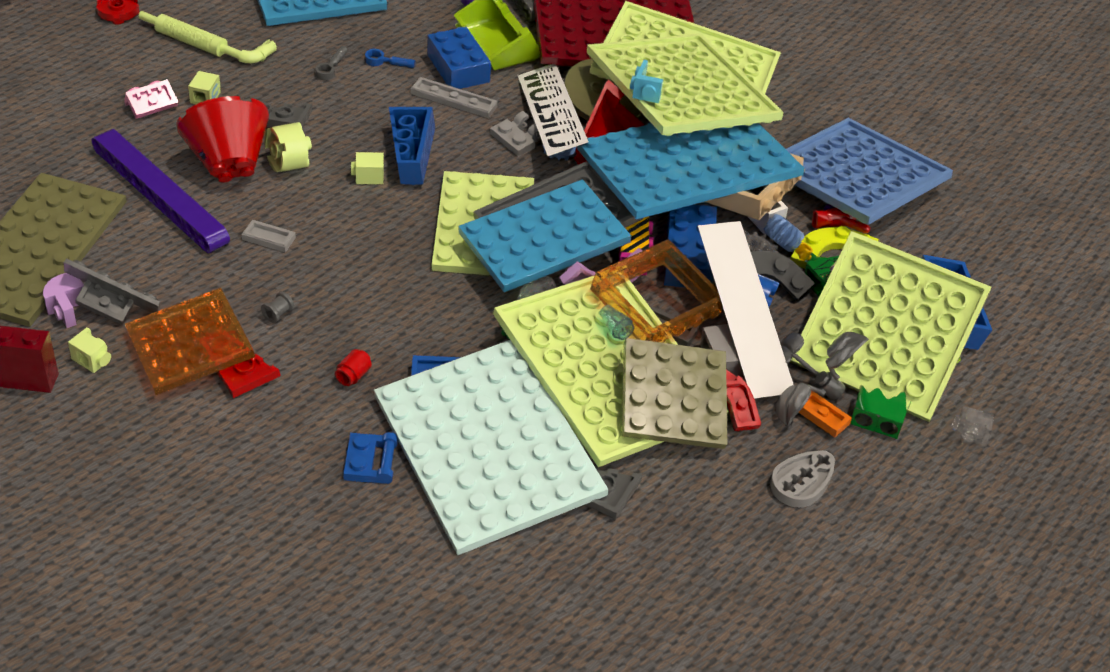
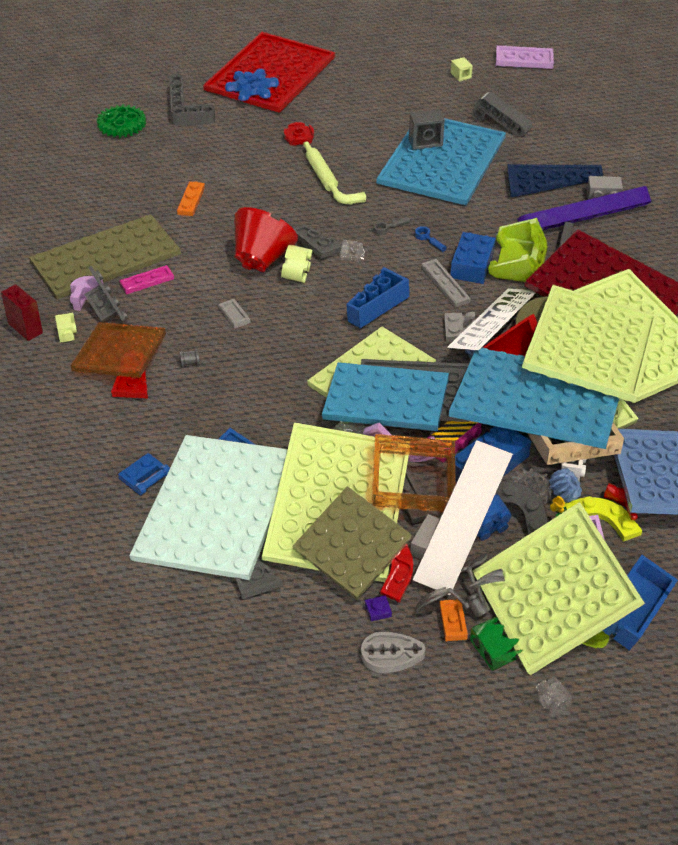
camera: 45 degrees right, 0 degrees up
(68, 134) = (191, 198): none -> orange plate
(121, 249) = (146, 279): none -> dark pink tile
(151, 98) = (255, 197): bracket -> none
(161, 191) = (201, 256): dark purple beam -> none
(204, 87) = (292, 206): yellowish green brick -> none
(327, 108) = (347, 247): none -> clear brick
(353, 367) = (191, 415): red brick -> none
(368, 168) = (335, 301): yellowish green brick -> none
(617, 323) = (363, 476): clear light blue cone -> none
(644, 86) = (544, 326): medium azure bracket -> none
(747, 445) = (378, 608): none -> dark purple plate

